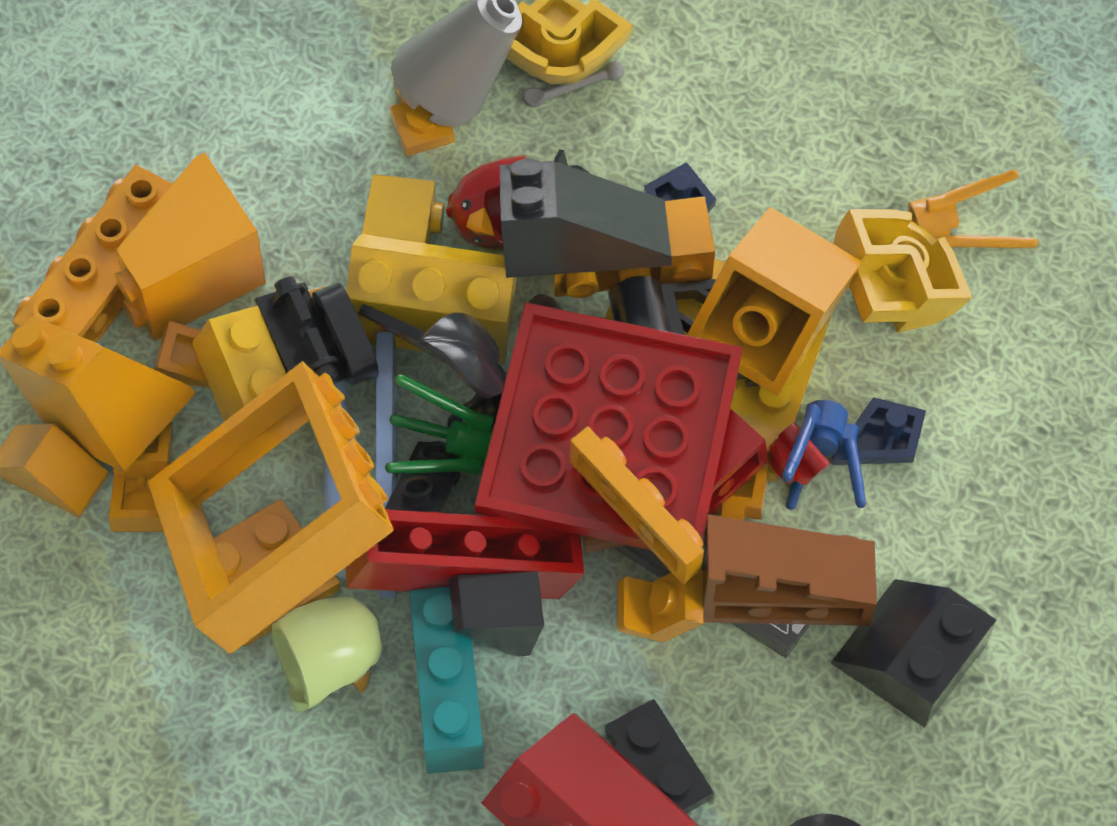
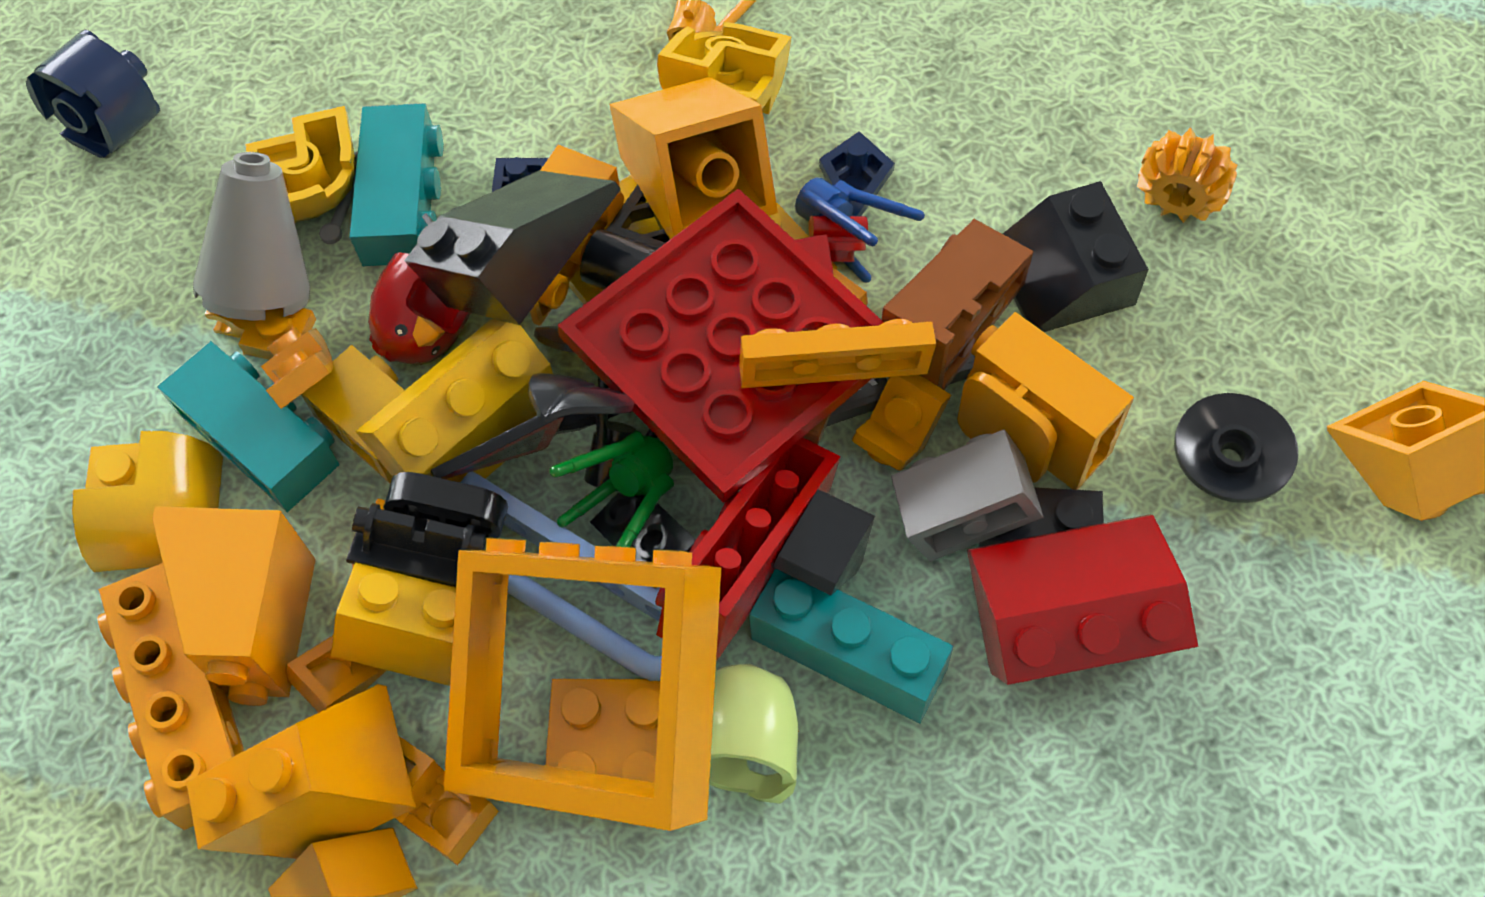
camera: 50 degrees left, 0 degrees up
(236, 134) = (127, 484): none -> yellow brick
(330, 164) = (246, 425): none -> teal brick
(390, 159) = (296, 364): none -> light orange slope
(606, 107) = (394, 180): none -> teal brick
(623, 686) = (966, 495): none -> light grey brick
(740, 692) = (1045, 399): none -> light orange brick
(1070, 689) = (1187, 175): none -> light orange gear

